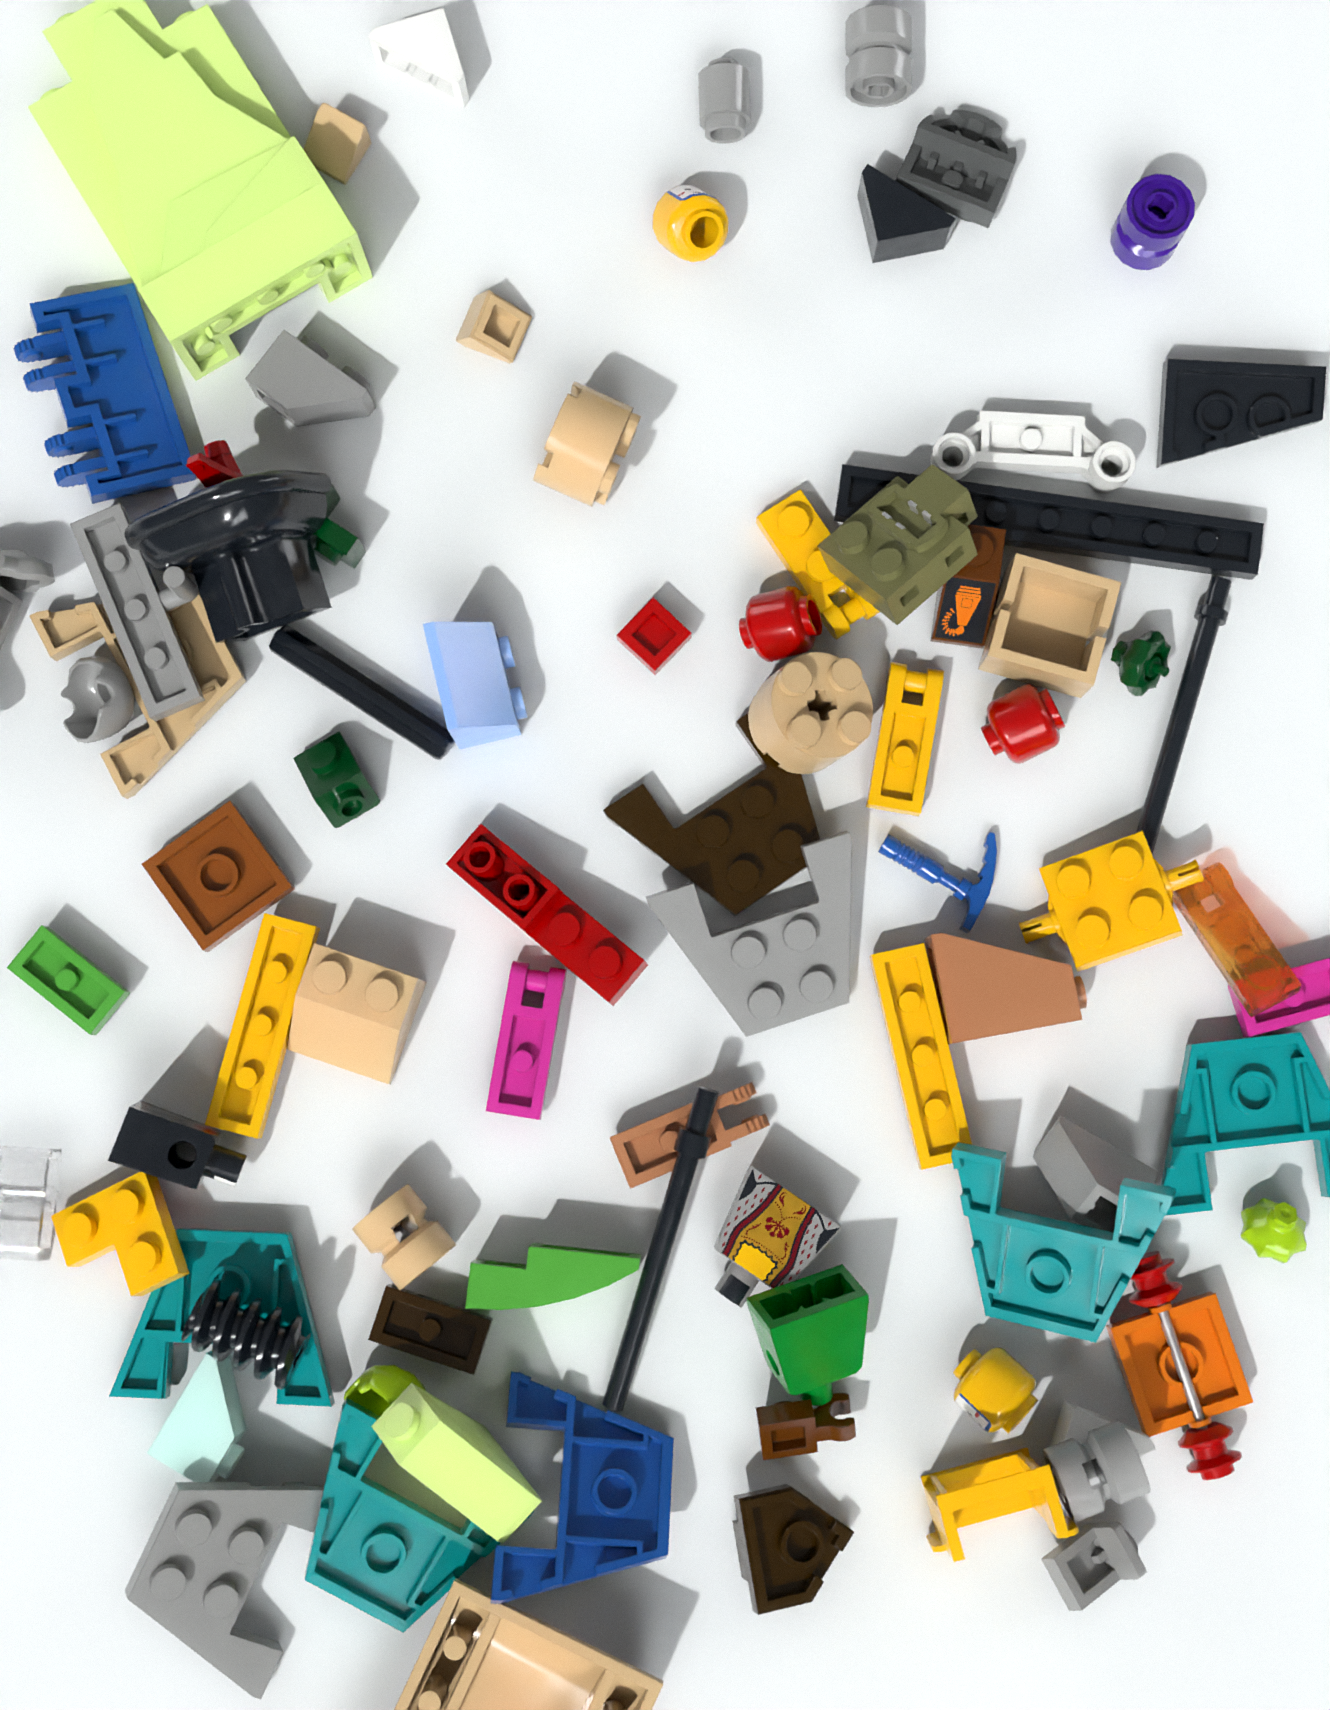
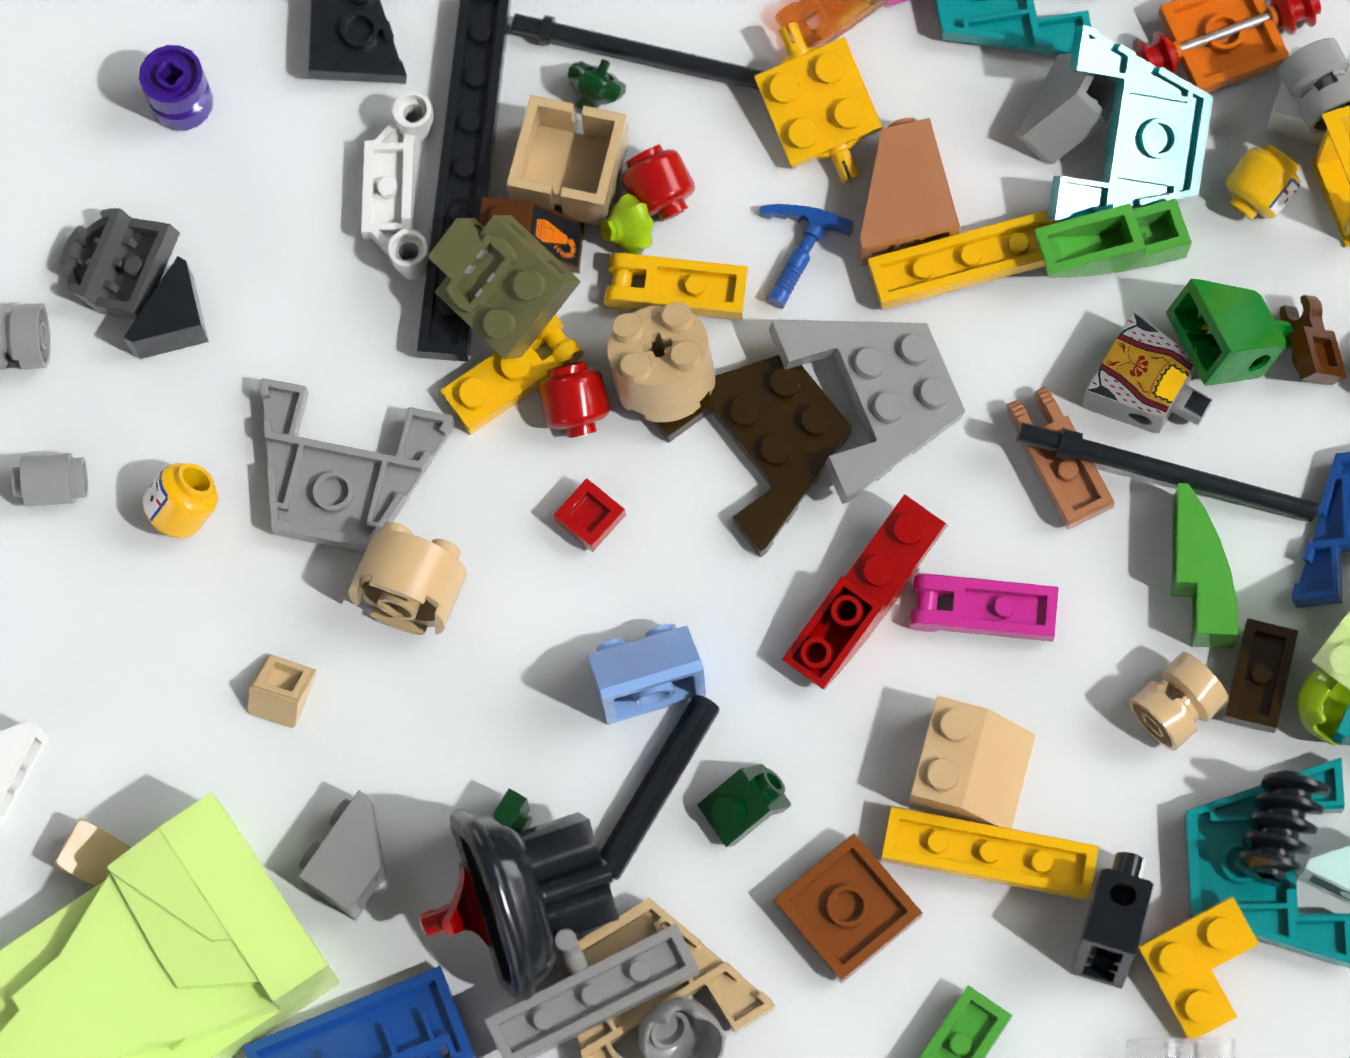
camera: 90 degrees left, 10 degrees down
(696, 383) = (336, 490): none -> light grey wing
(929, 1213) = (1114, 240): none -> bright green slope
(973, 688) = (628, 225): none -> lime piece

